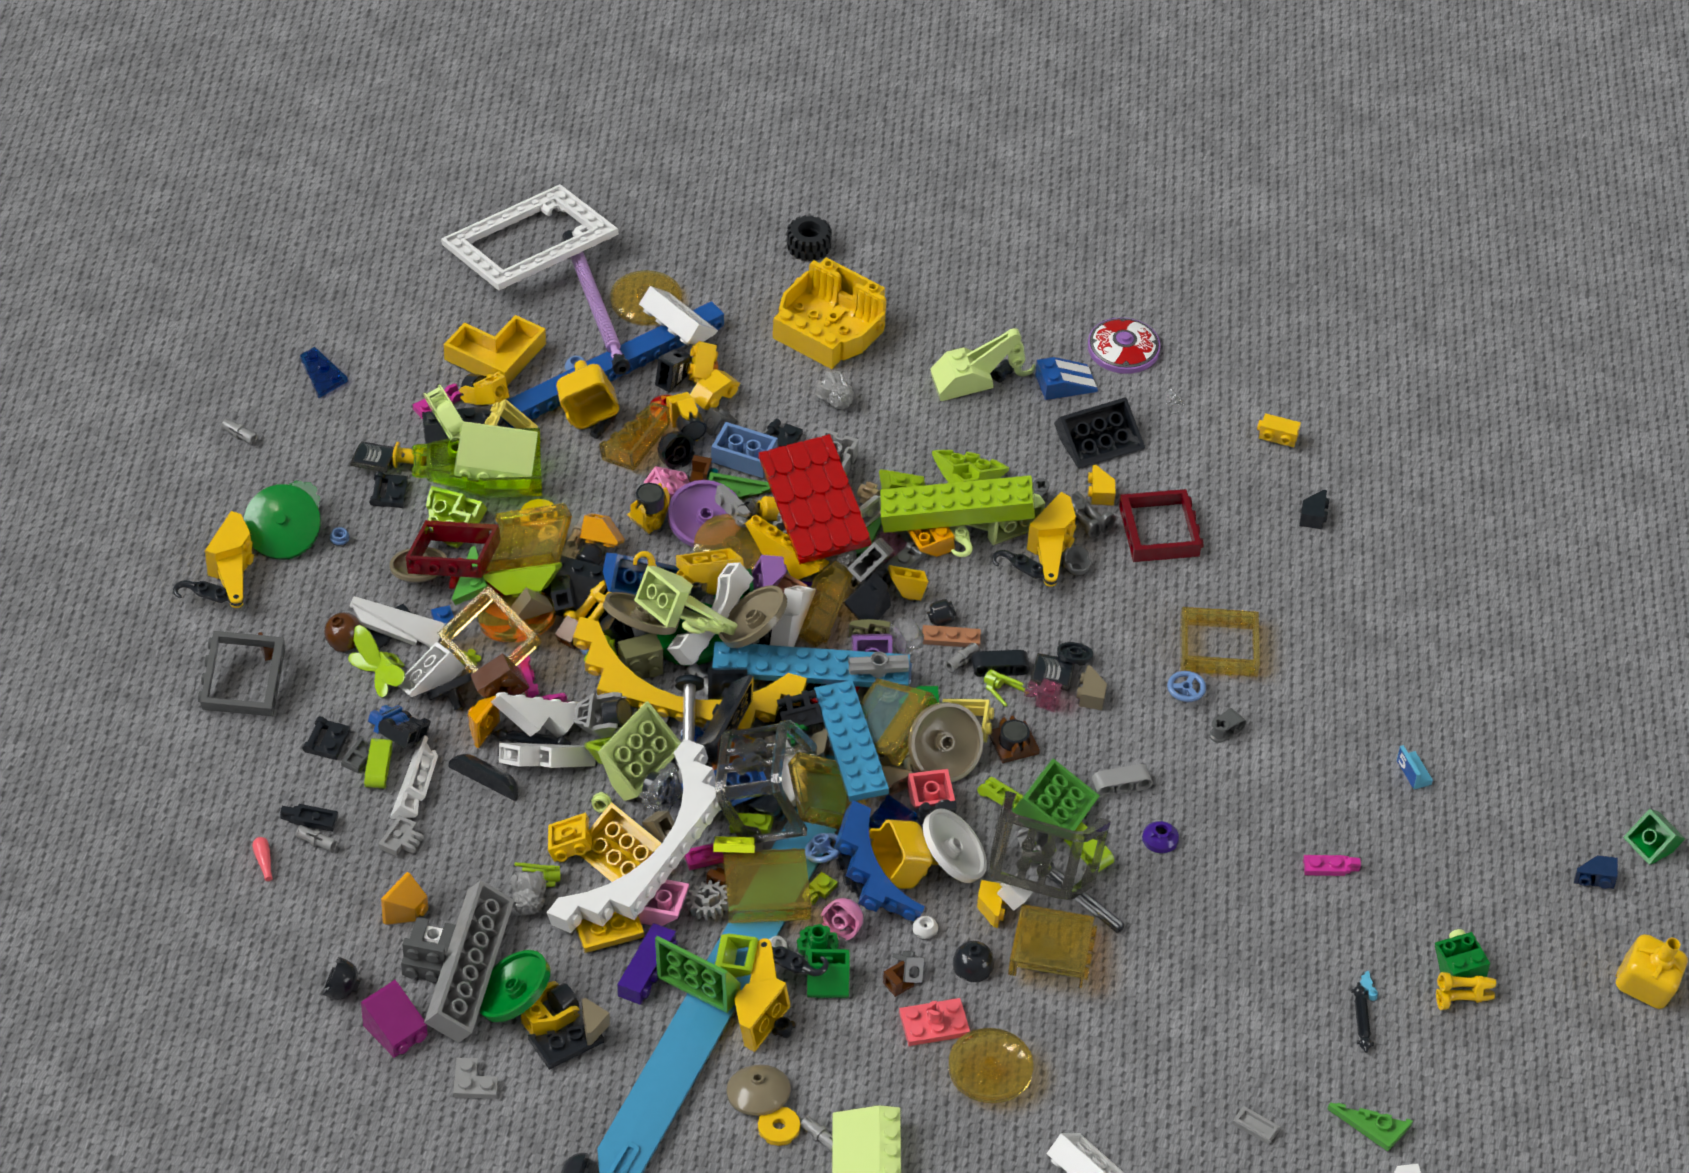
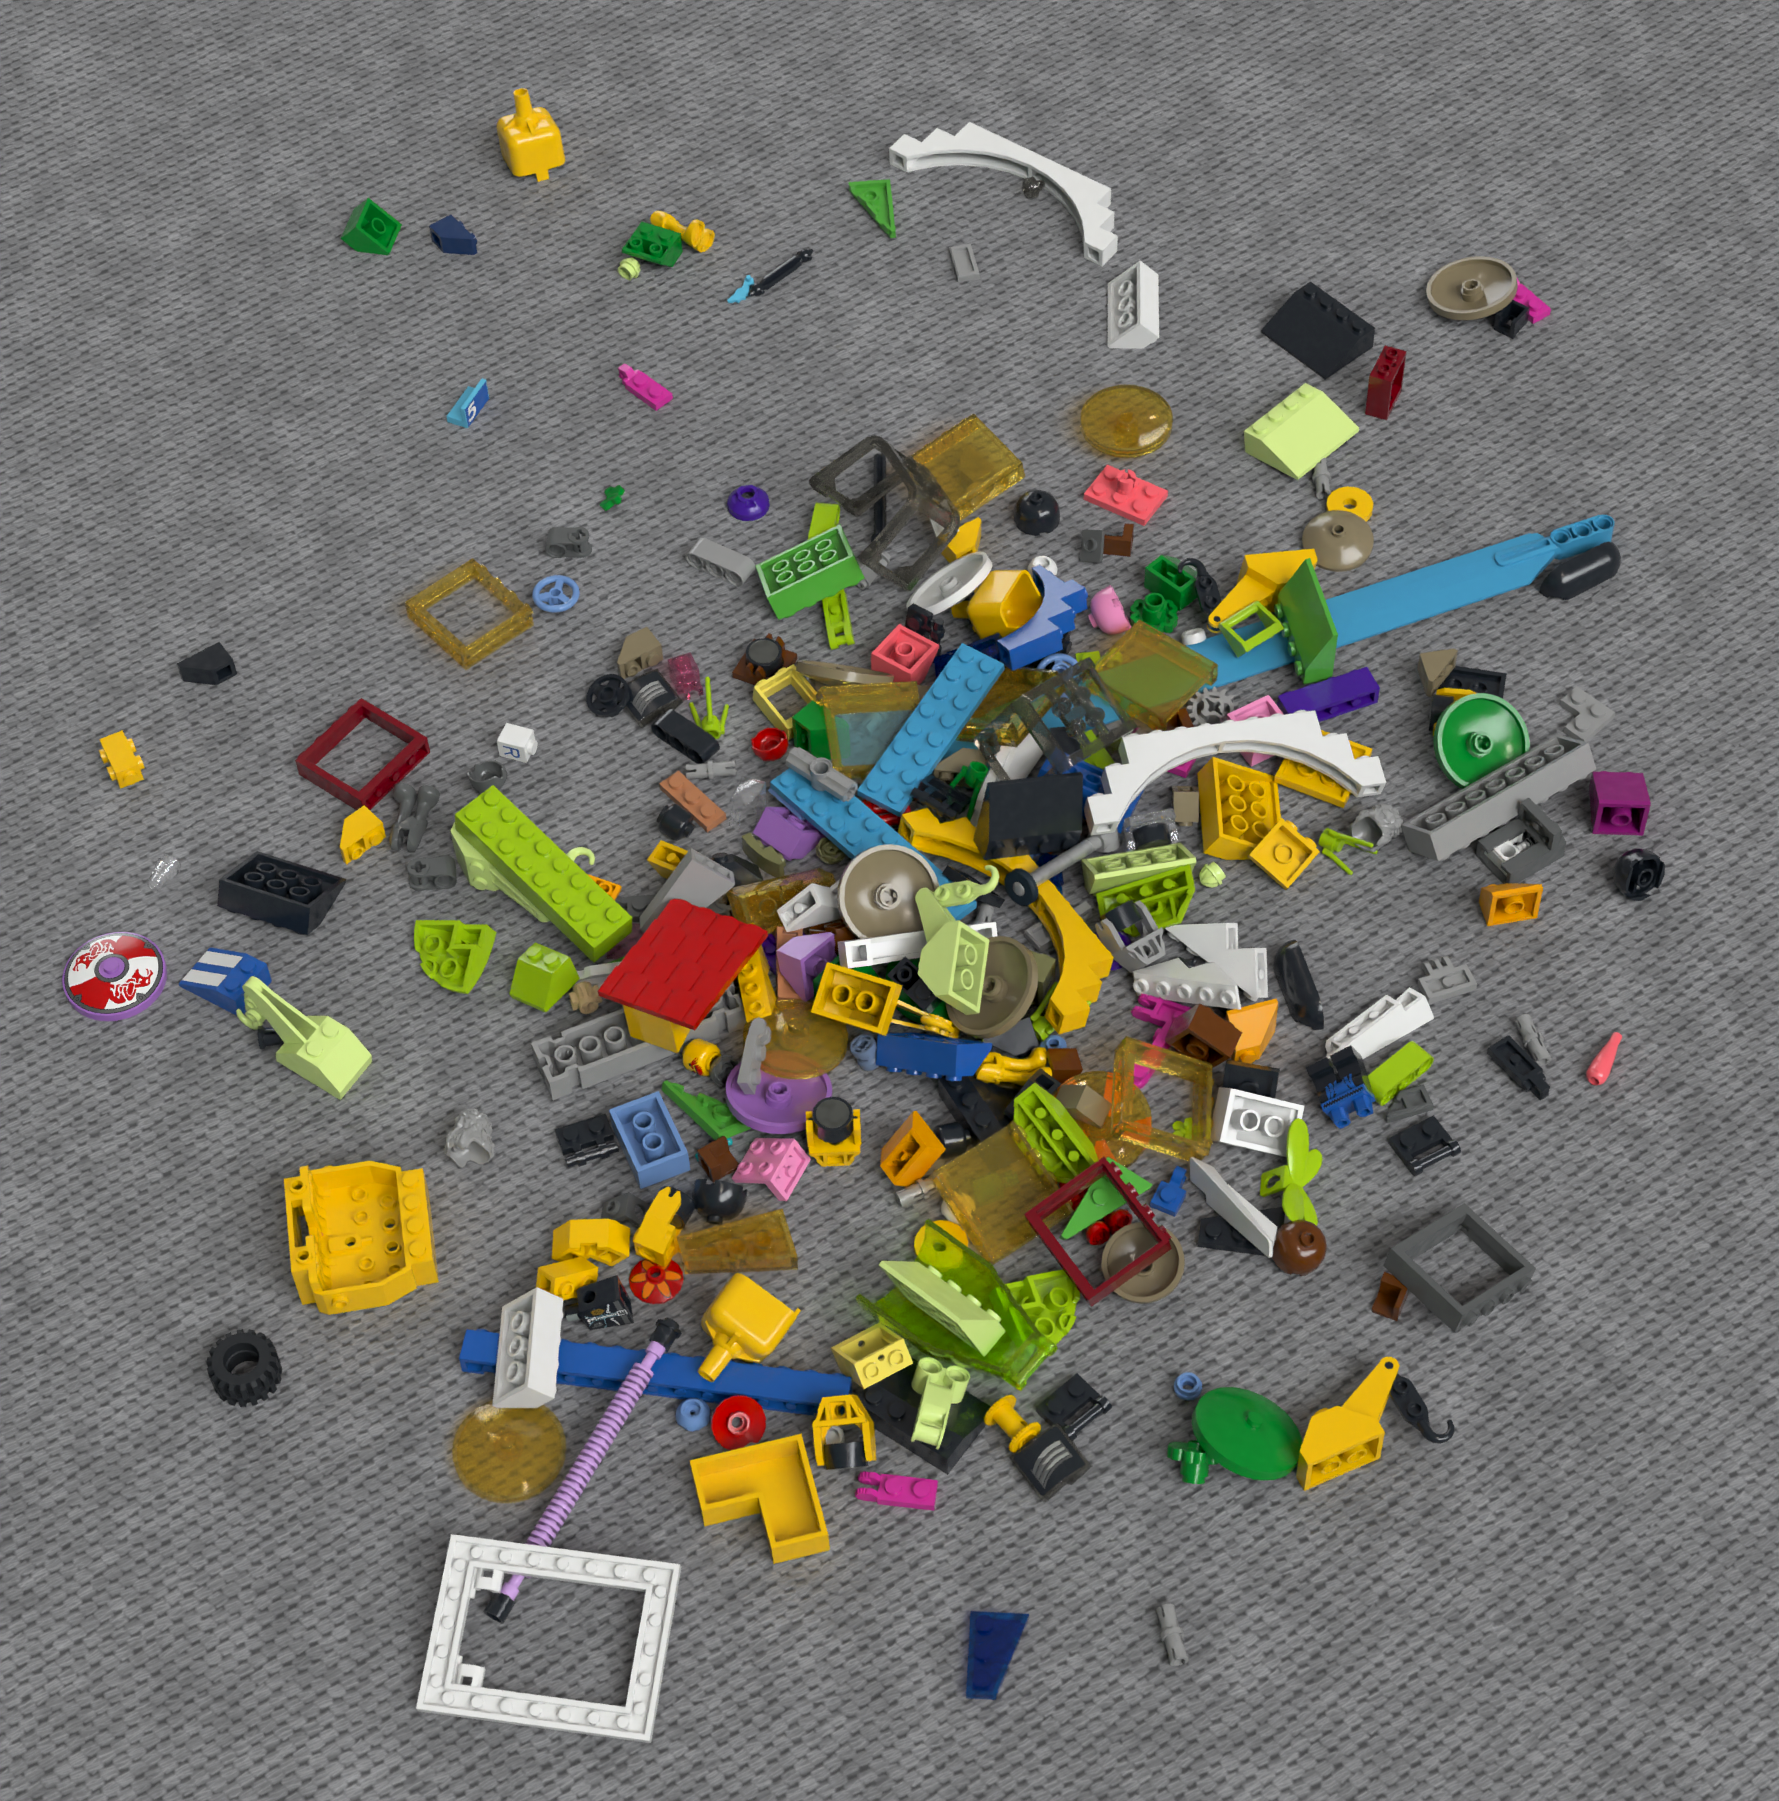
camera: 130 degrees left, 5 degrees up
(547, 370) = (751, 1423): none -> red dish
(734, 844) = (1148, 714): neon yellow tile -> none
(947, 688) = (770, 744): none -> red hair
(1047, 538) = (513, 785): yellow slope -> none
(1088, 591) = (516, 743): none -> white brick
(1241, 773) = (613, 497): none -> green piece

